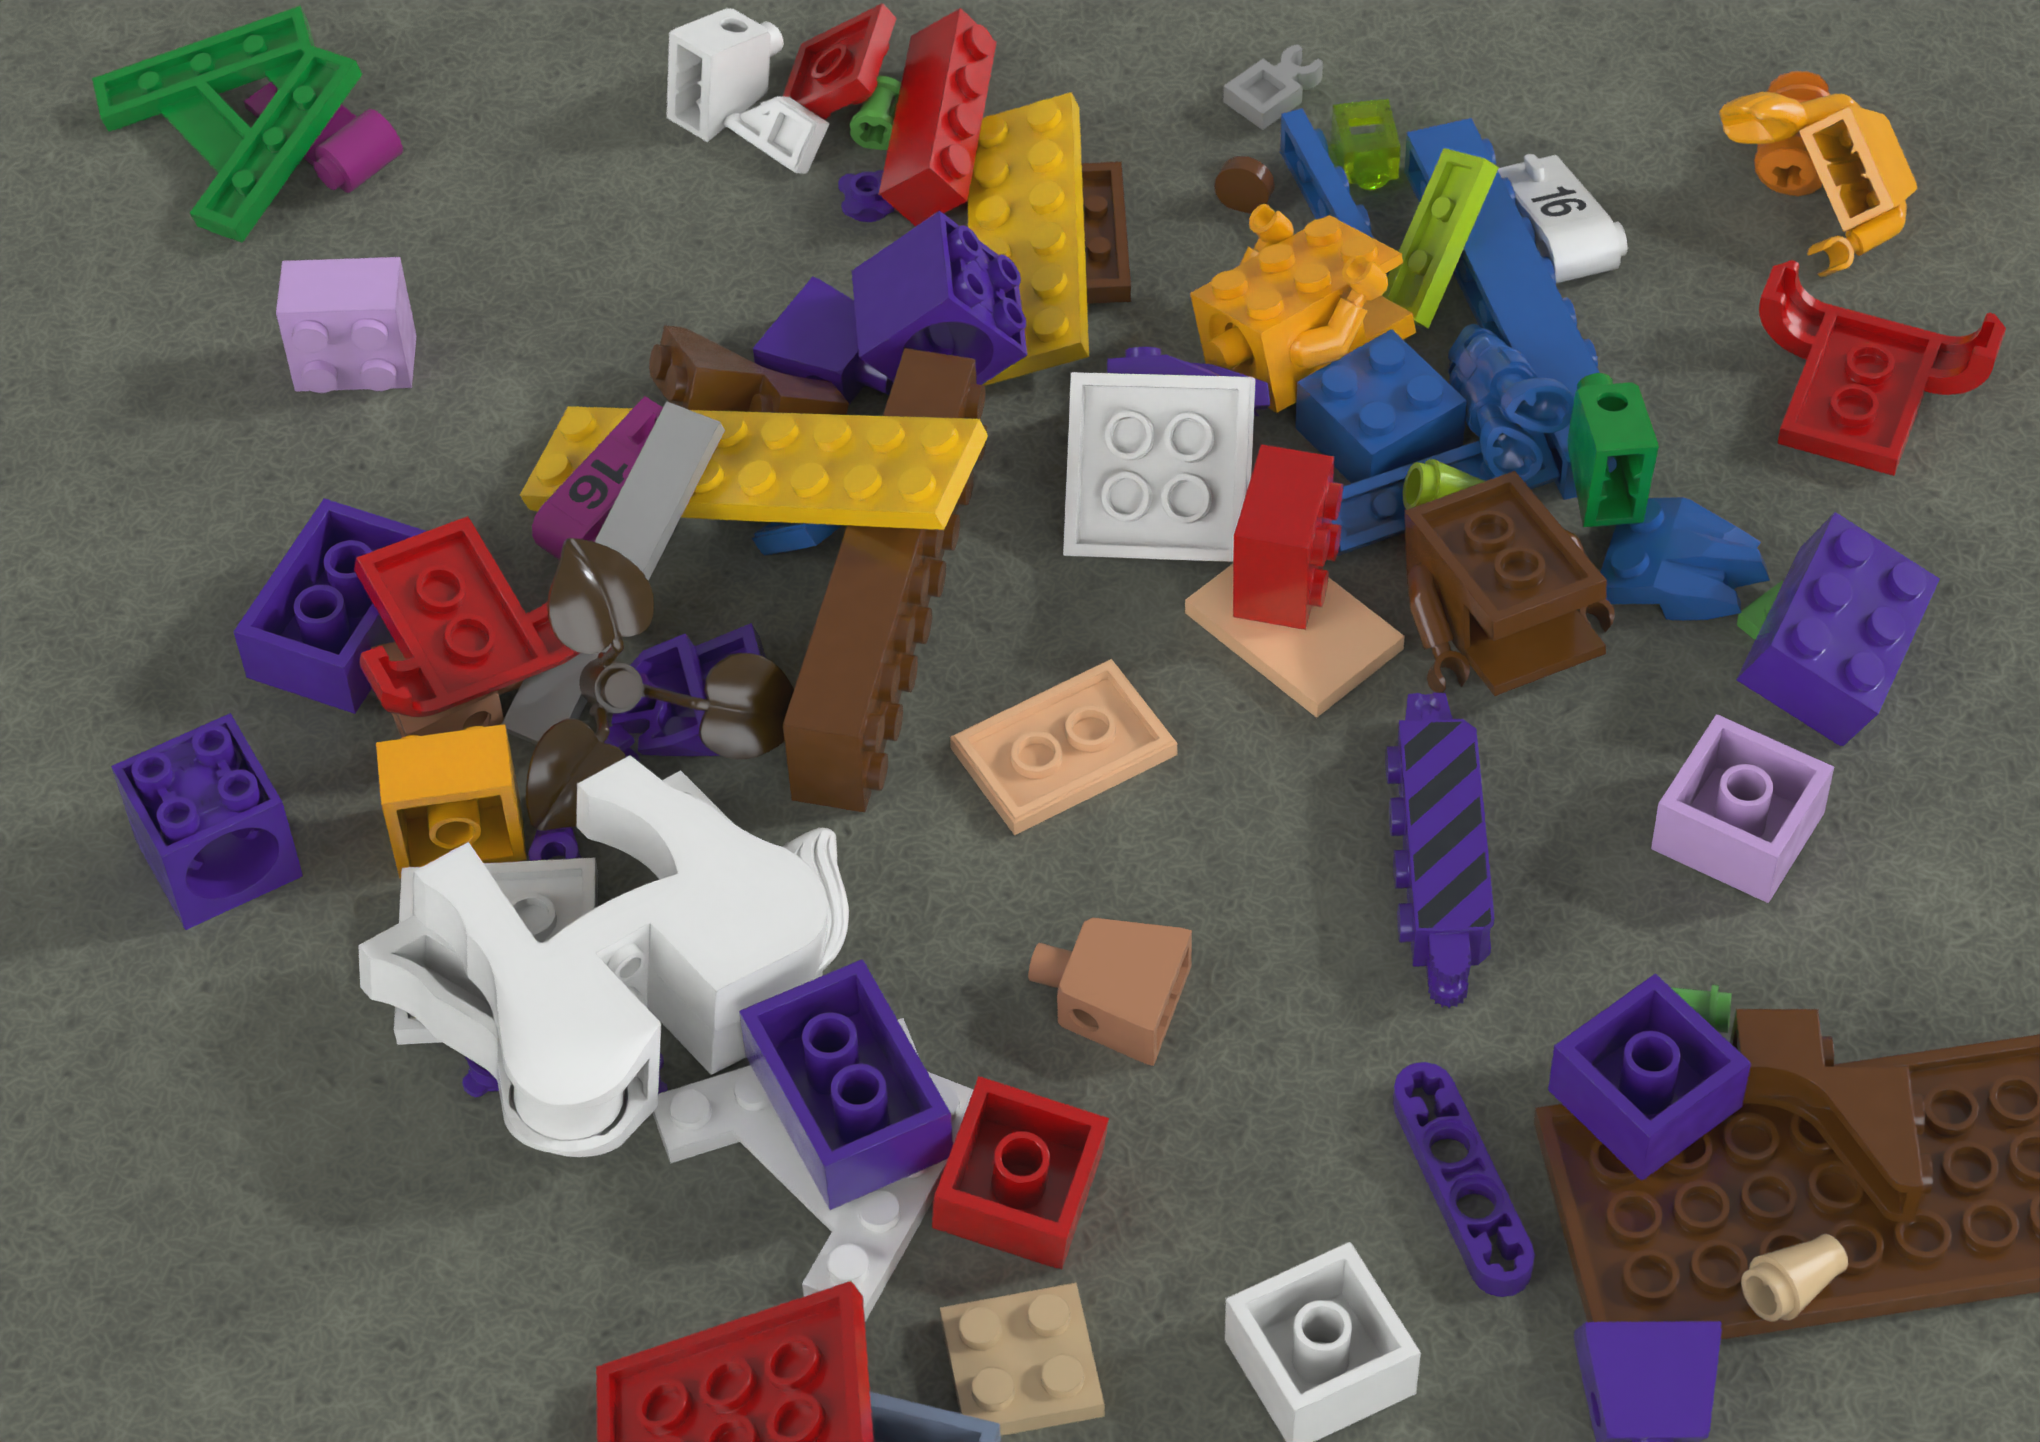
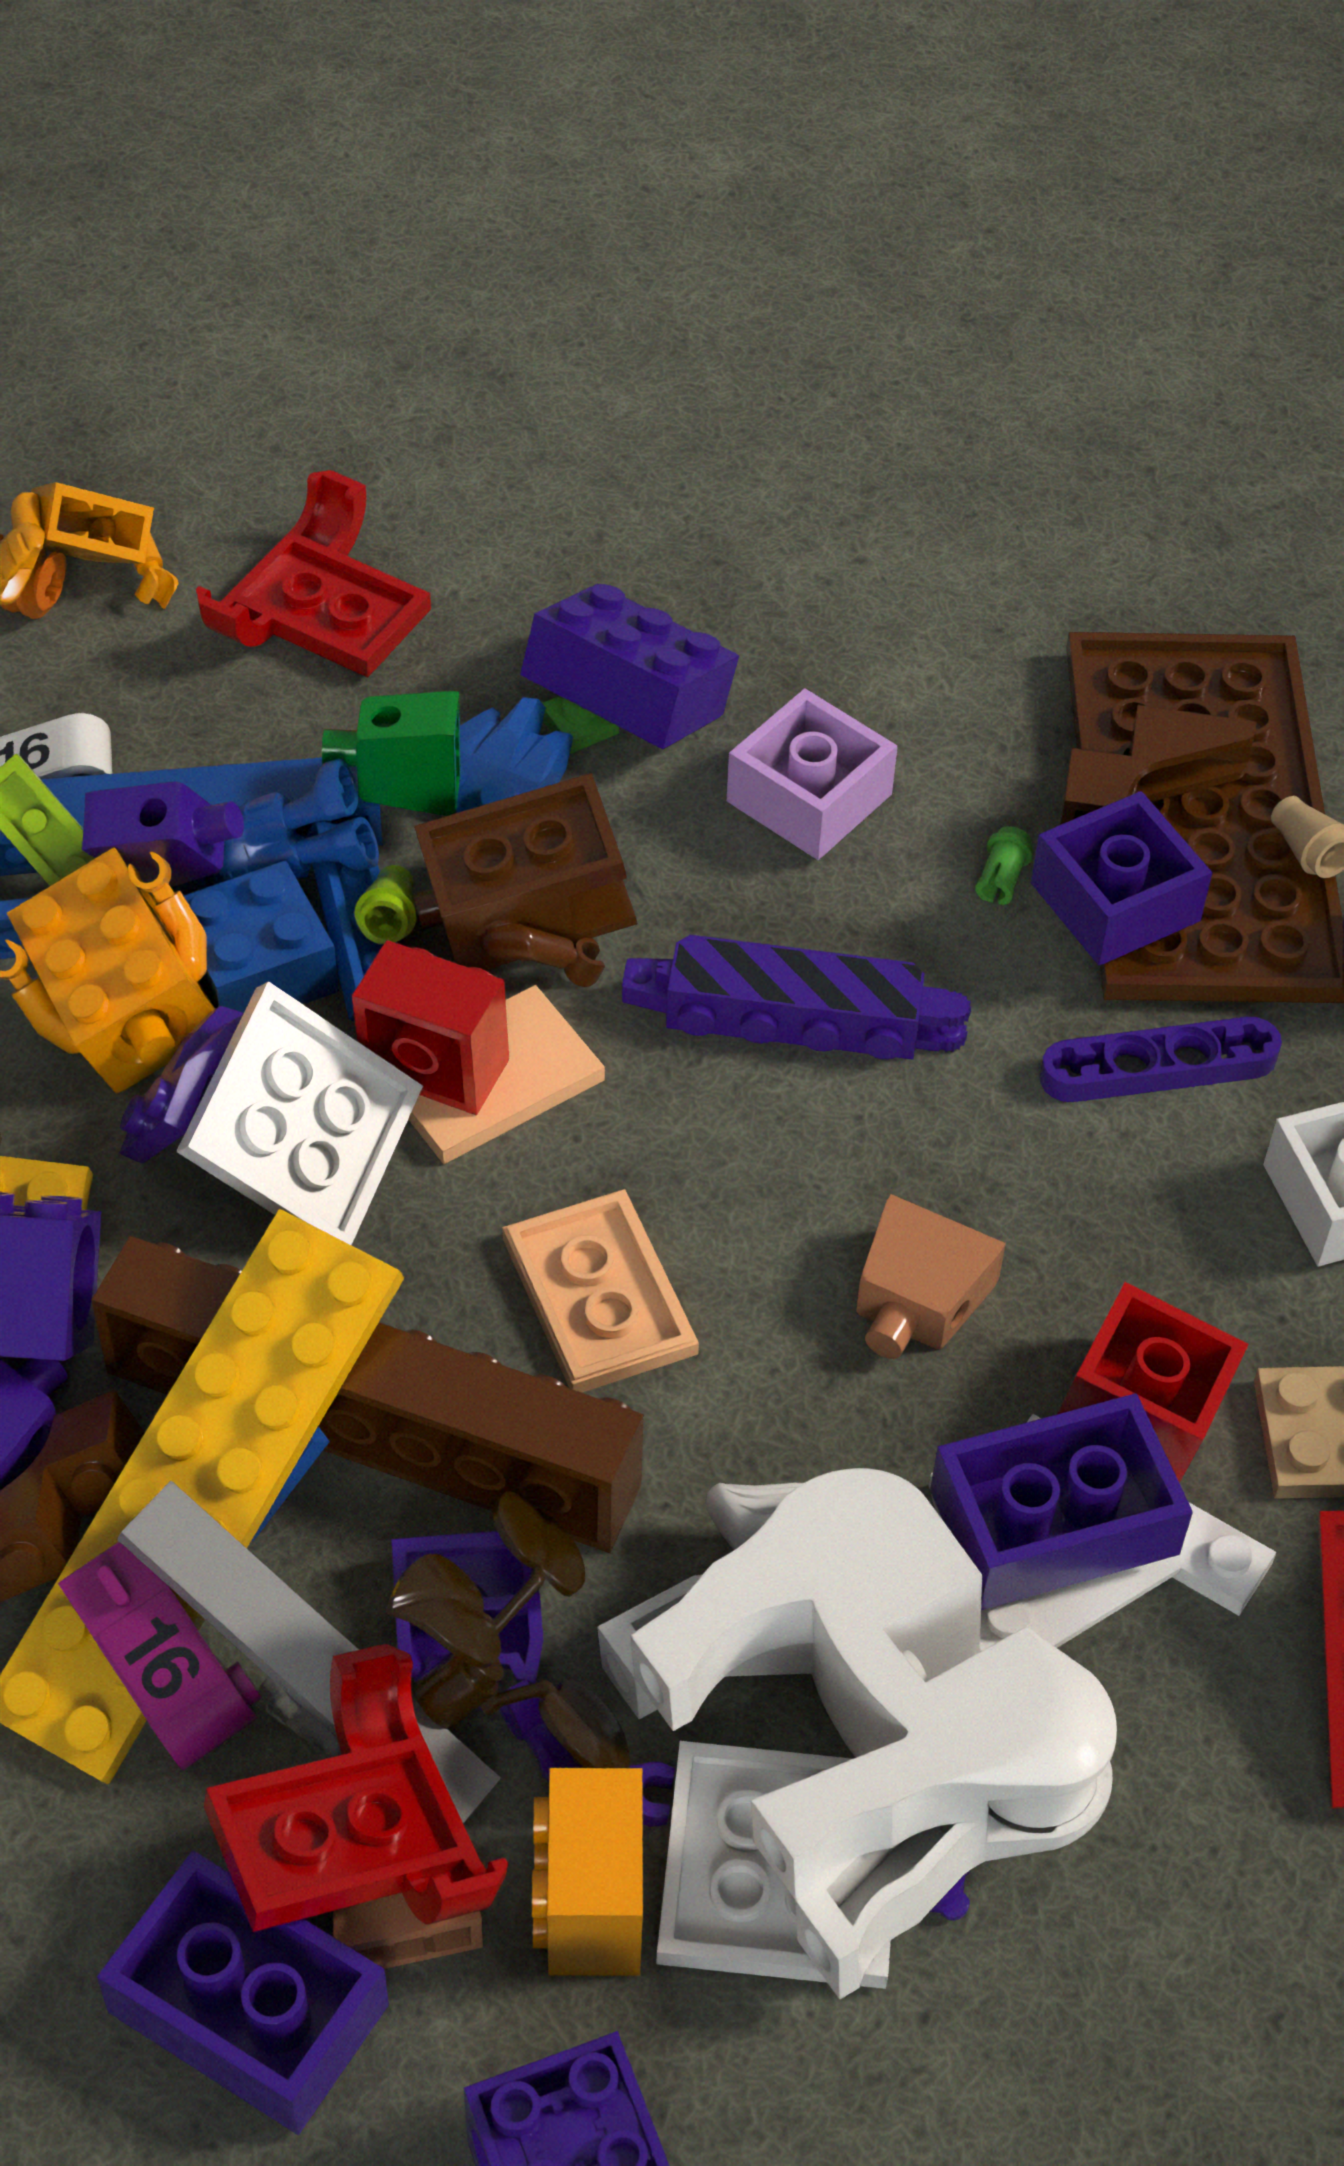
camera: 85 degrees left, 0 degrees up
(1446, 295) = (163, 821): none -> dark purple torso

